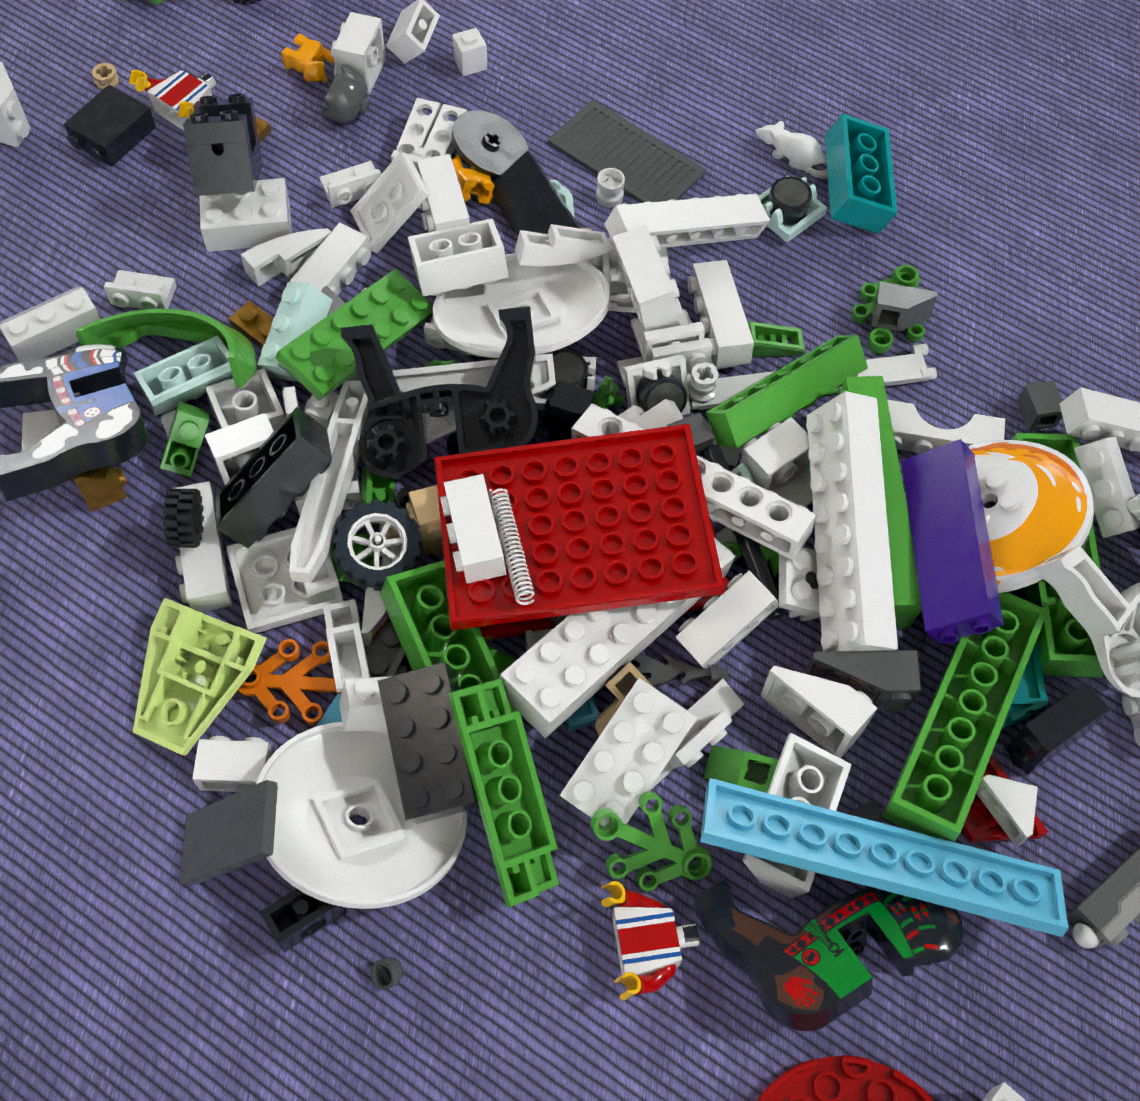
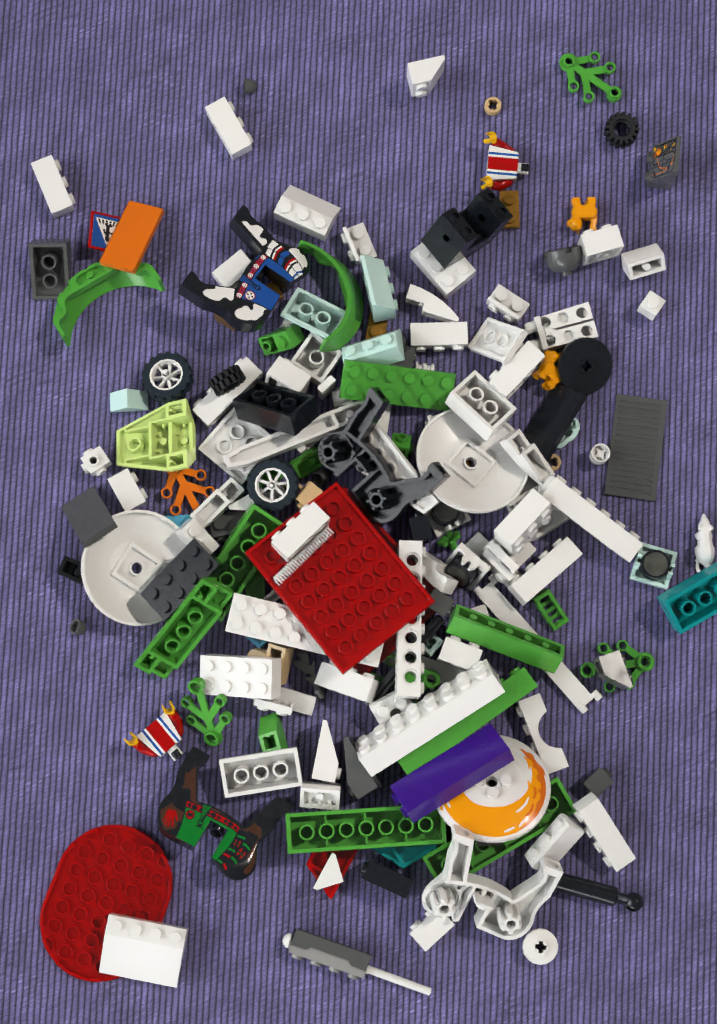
camera: 60 degrees right, 20 degrees up
(102, 687) = (129, 400): none -> light aqua slope
(103, 598) = (174, 392): none -> black wheel
(109, 125) = (455, 140): black brick -> none
(153, 783) = (95, 455): none -> white brick
(215, 292) = (378, 288): none -> light aqua slope
(703, 382) = (482, 593): white bush -> none
(882, 746) = (320, 795): none -> white bracket
(884, 857) = (256, 823): medium azure plate -> none

